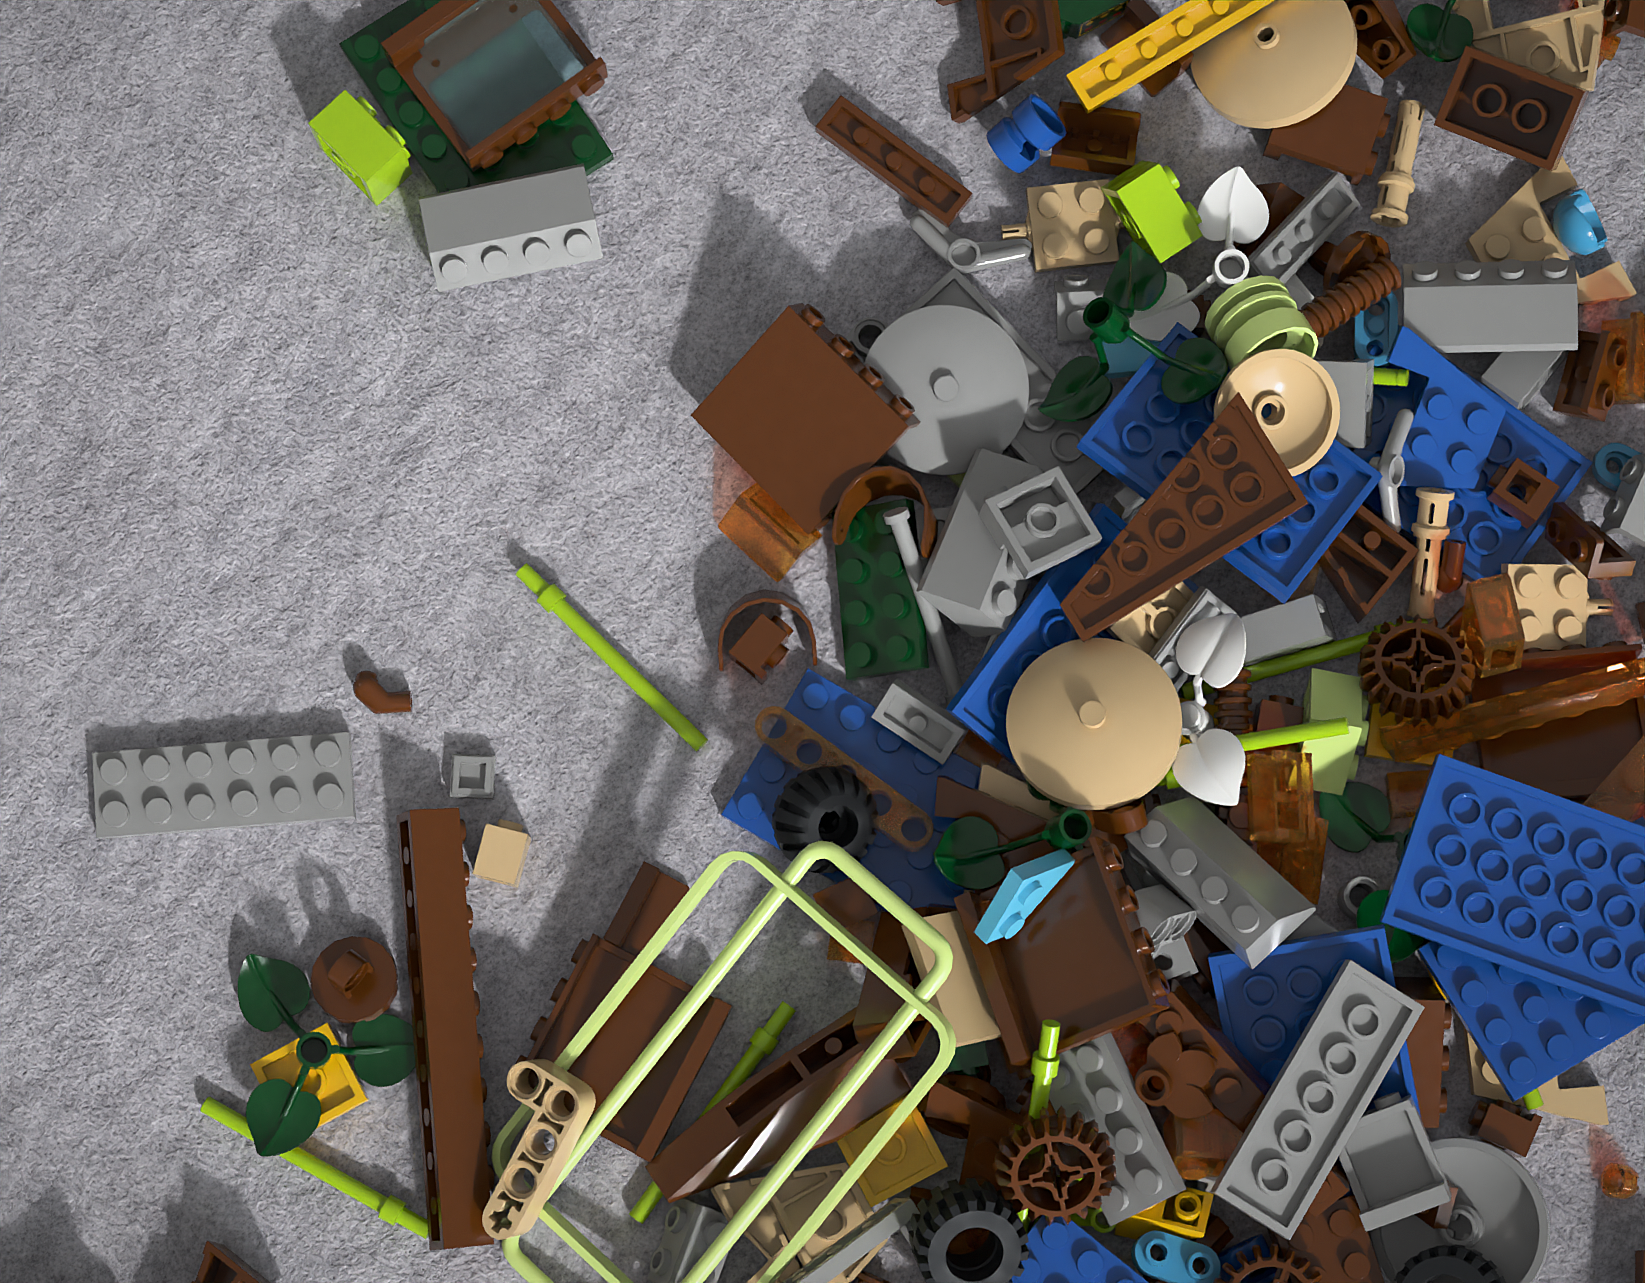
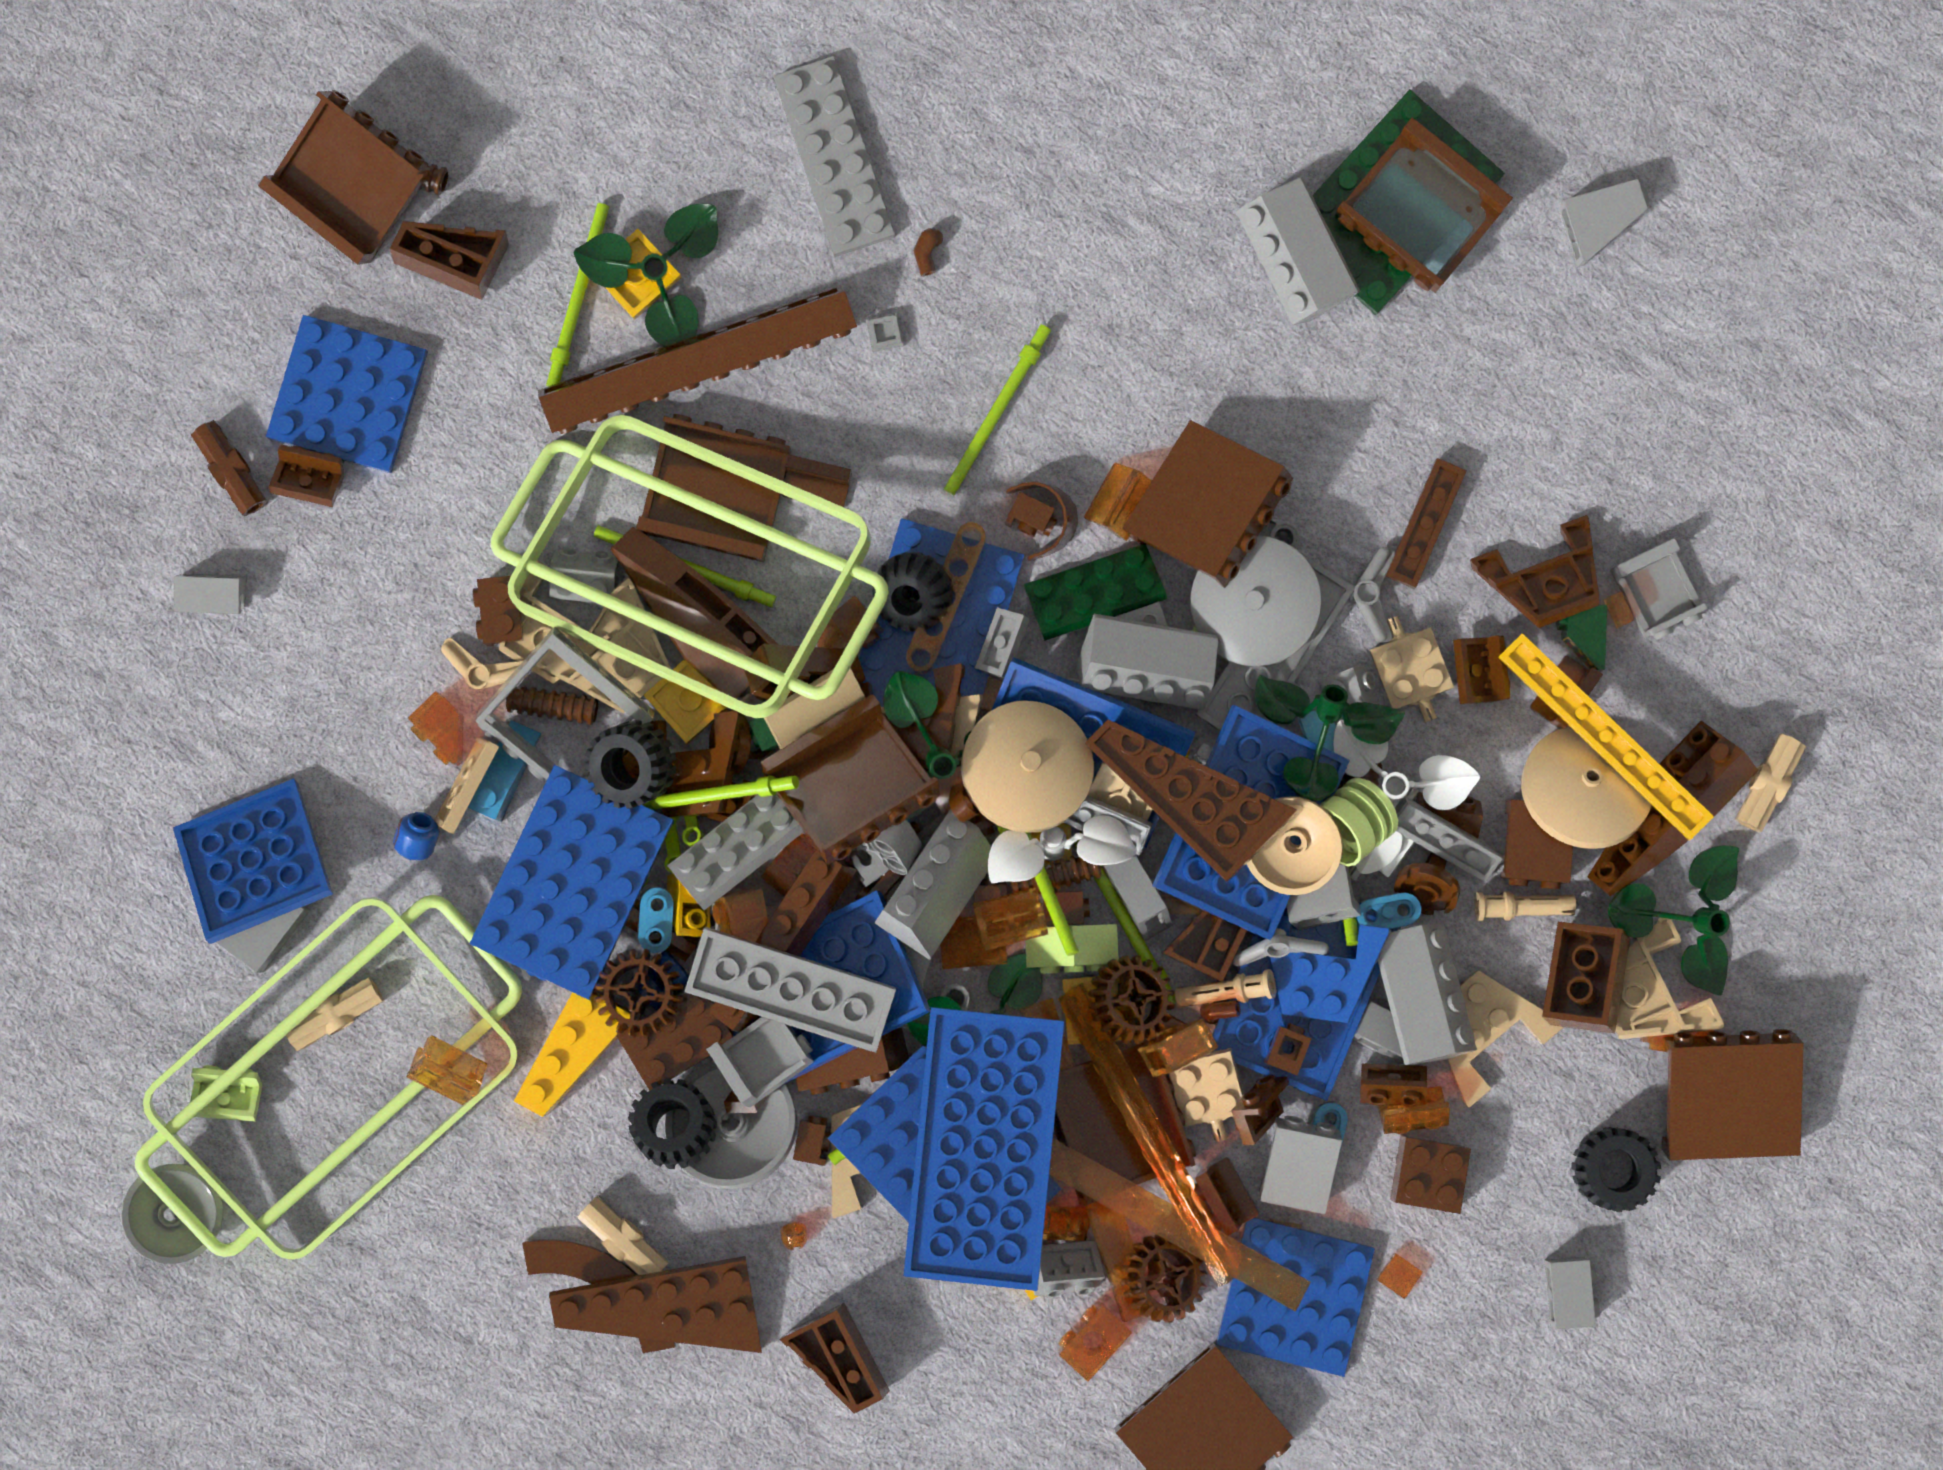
camera: 75 degrees right, 5 degrees up
(354, 979) = (716, 286): reddish brown tile -> none
(361, 147) = (1327, 130): lime brick -> none
(502, 853) = (832, 367): tan brick -> none
(531, 1151) = (581, 438): tan beam -> none
(876, 484) = (1169, 566): reddish brown piece -> none
(898, 520) = (1143, 587): light grey bar -> none
(1021, 893) = (885, 739): medium azure wing -> none
(1022, 1177) = (711, 816): reddish brown gear -> none
(1031, 129) = (1471, 615): blue wheel -> none
(1039, 521) = (1167, 690): light grey plate -> none
(1153, 210) = (1435, 718): lime brick -> none
(1182, 1076) = (784, 887): reddish brown plate -> none
(1352, 296) = (1401, 884): reddish brown piece -> none
(1578, 224) = (1511, 1052): dark azure hair -> none

